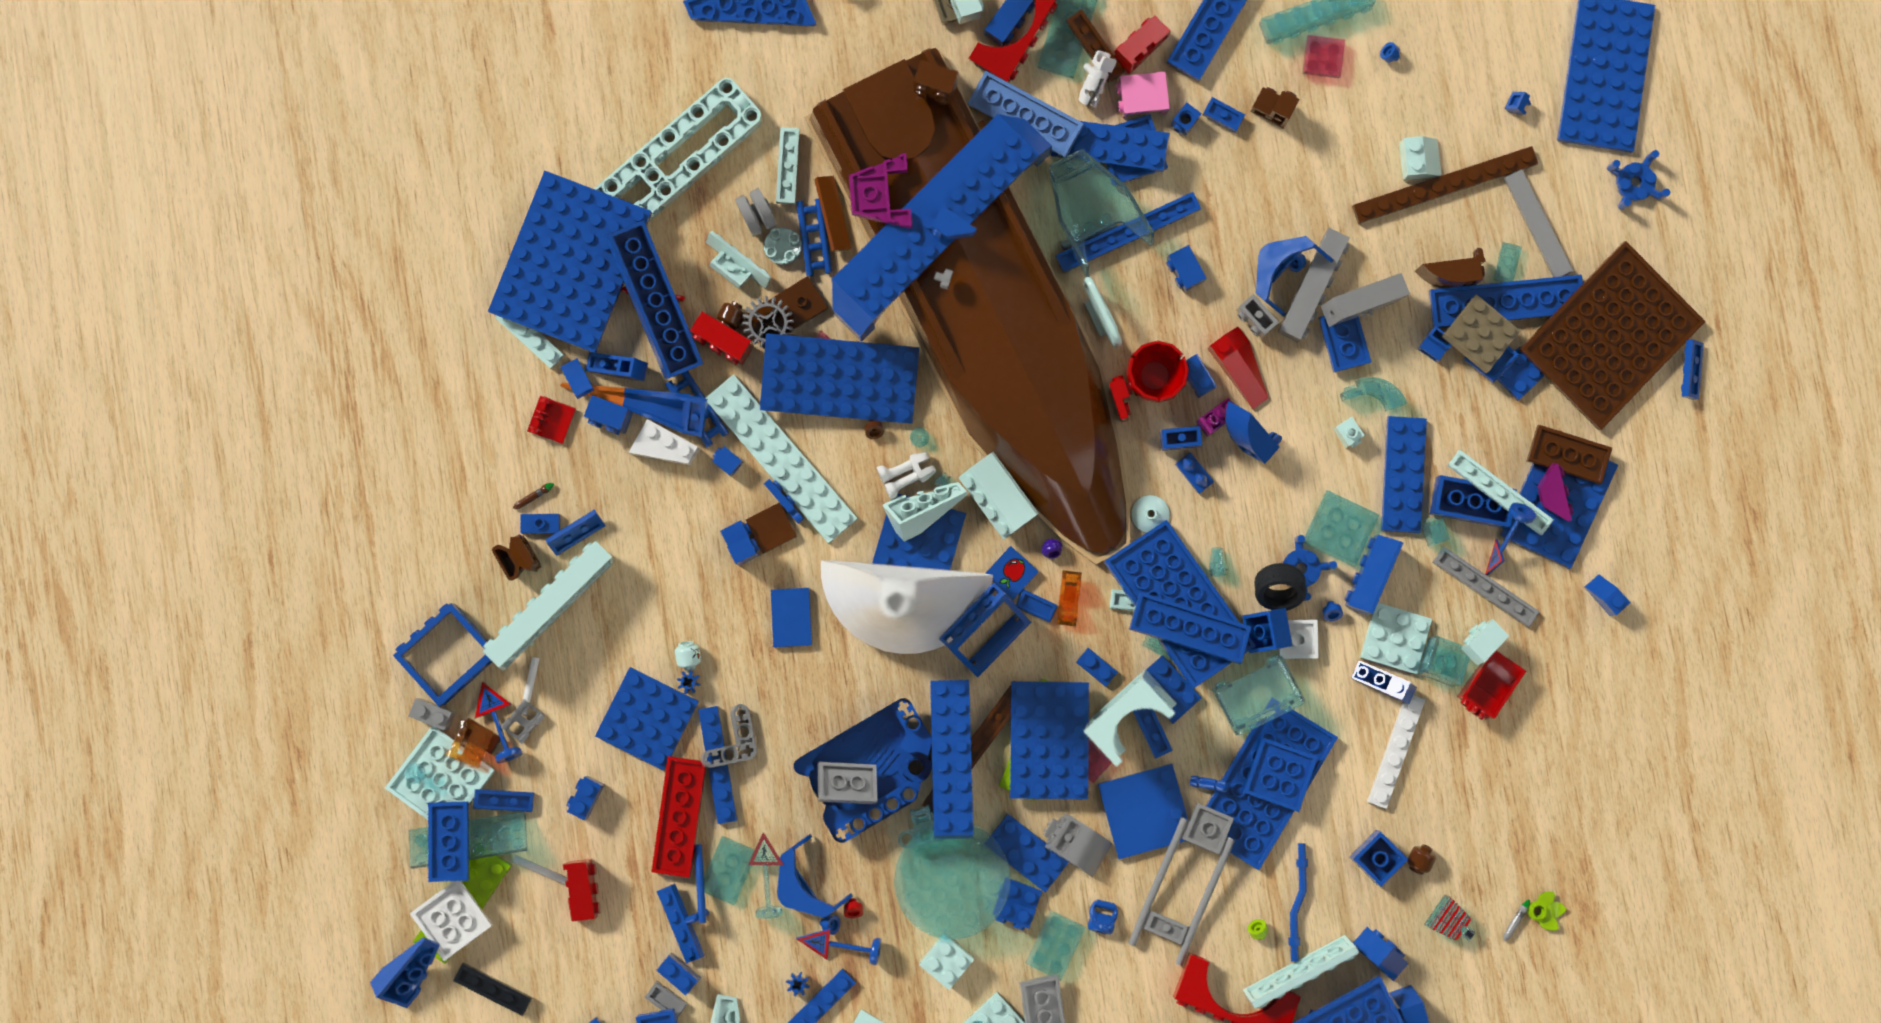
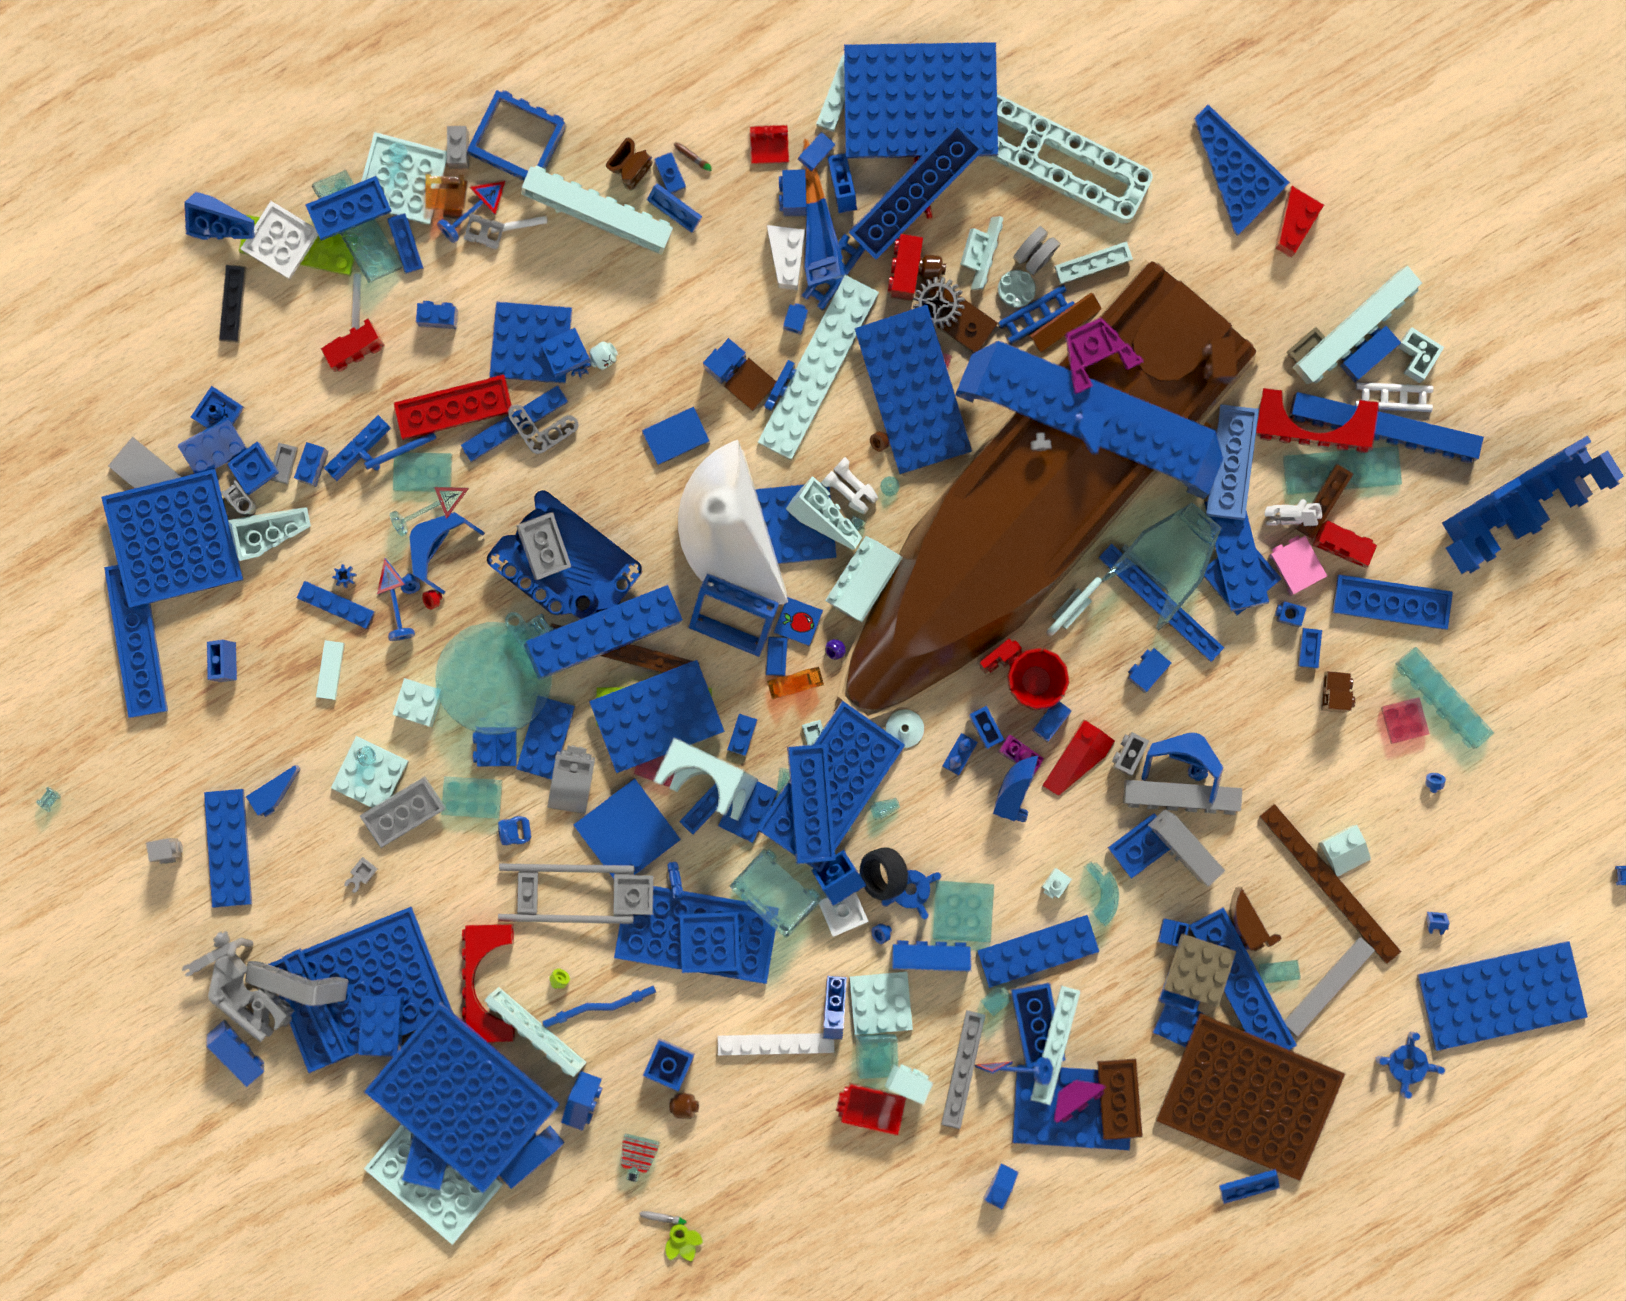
camera: 70 degrees right, 0 degrees up
(671, 689) = (565, 352): none -> blue plate

